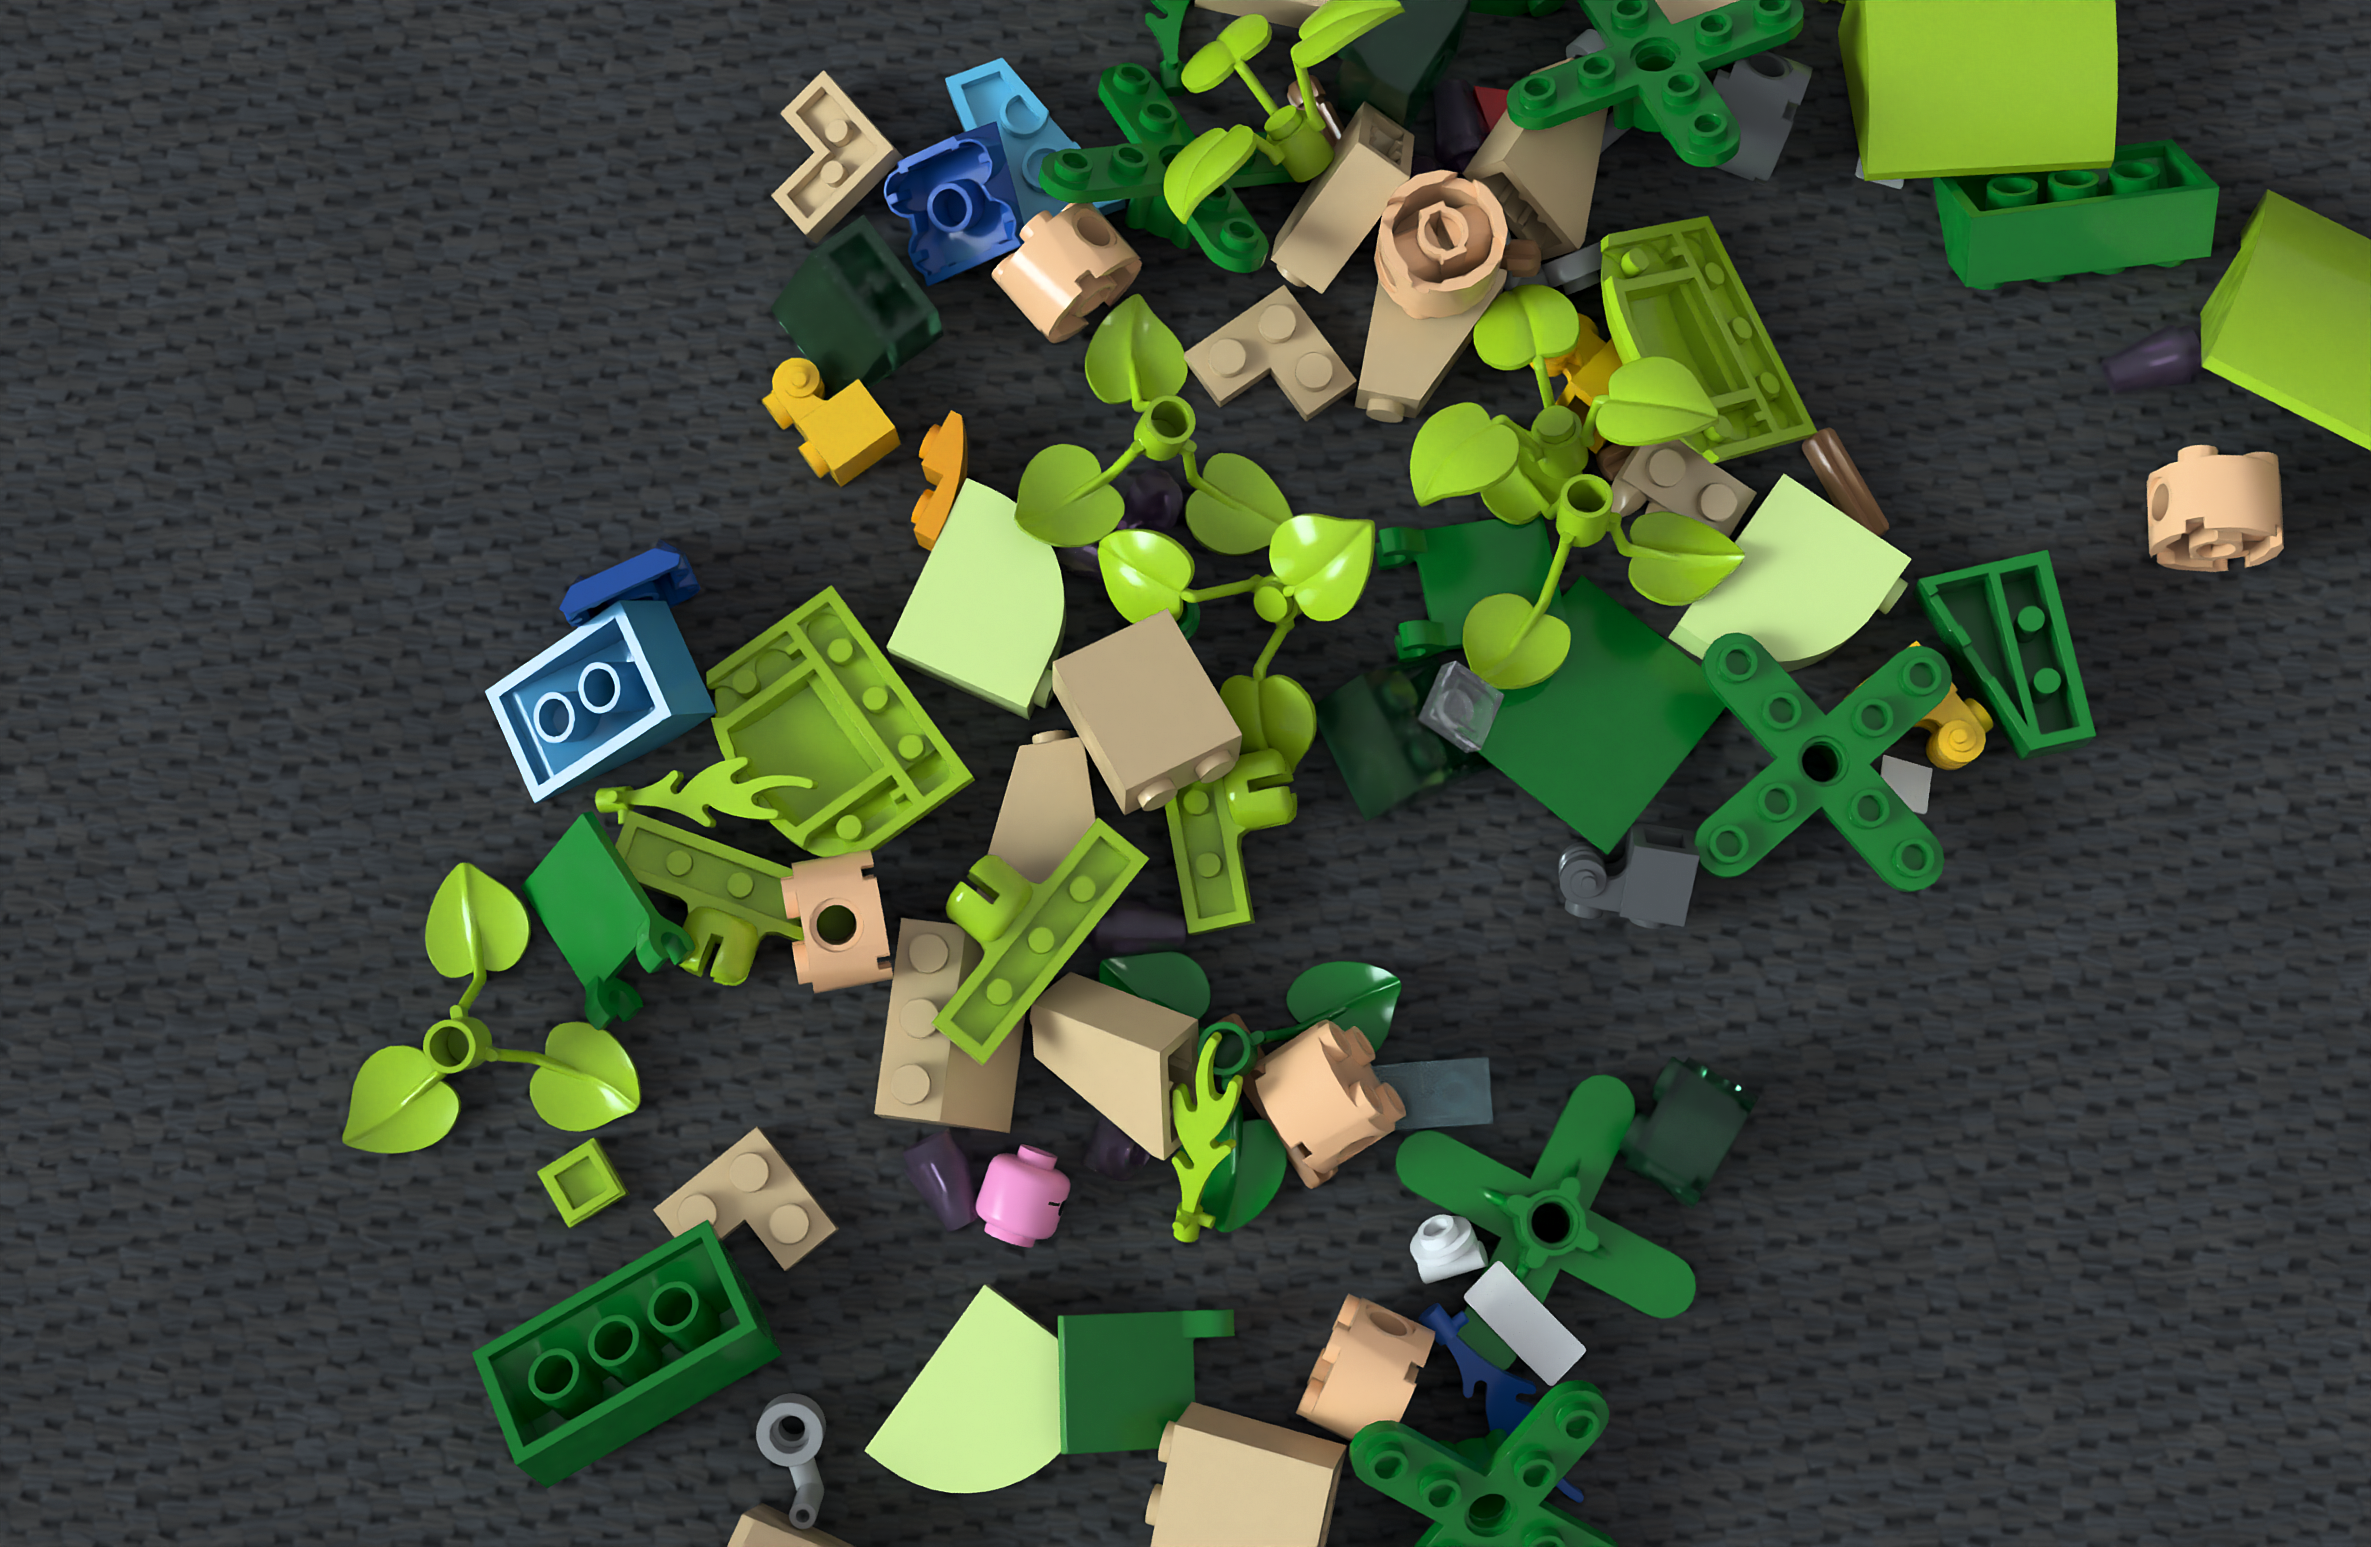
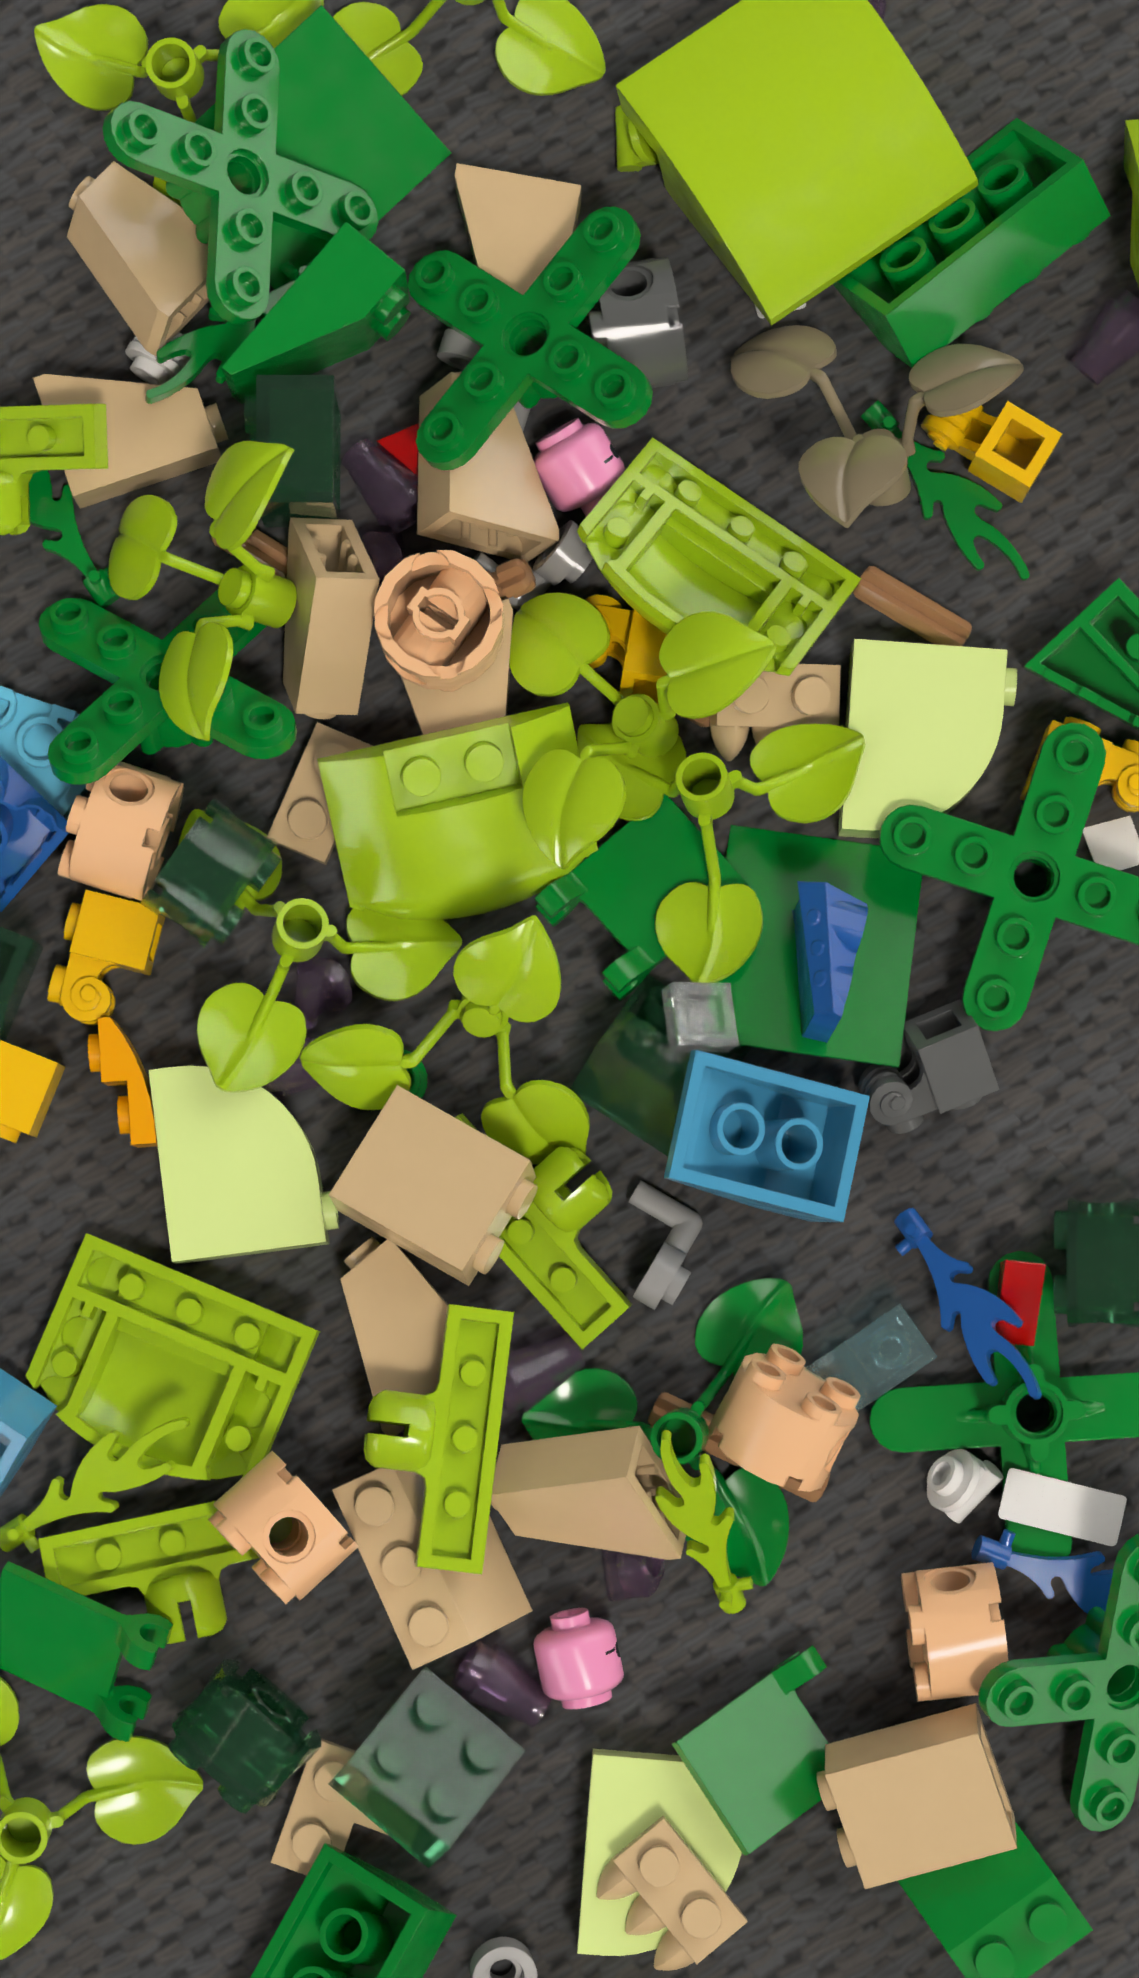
camera: 30 degrees left, 5 degrees up
(583, 1183) = (195, 1876): lime tile -> none
(695, 1084) = (243, 1736): none -> clear green brick
(834, 1206) = (427, 1767): none -> clear green brick
(979, 1451) = (673, 1894): none -> tan plate
(998, 353) = (104, 937): none -> yellow brick
(1119, 344) = (212, 873): none -> clear green brick
(1298, 912) = (666, 1275): none -> light grey plate
(1335, 417) = (441, 819): none -> lime slope
(1456, 842) = (766, 1138): none -> dark azure slope
(1553, 1100) = (977, 1307): none -> blue piece
(1592, 1119) = (1021, 1289): none -> red piece
(1608, 709) = (827, 940): none -> blue slope
(1630, 197) = (577, 465): none -> bright pink head
(1895, 328) = (868, 467): none -> dark tan plant
(1937, 412) = (954, 494): none -> green piece
(2002, 395) = (1003, 449): none -> yellow brick

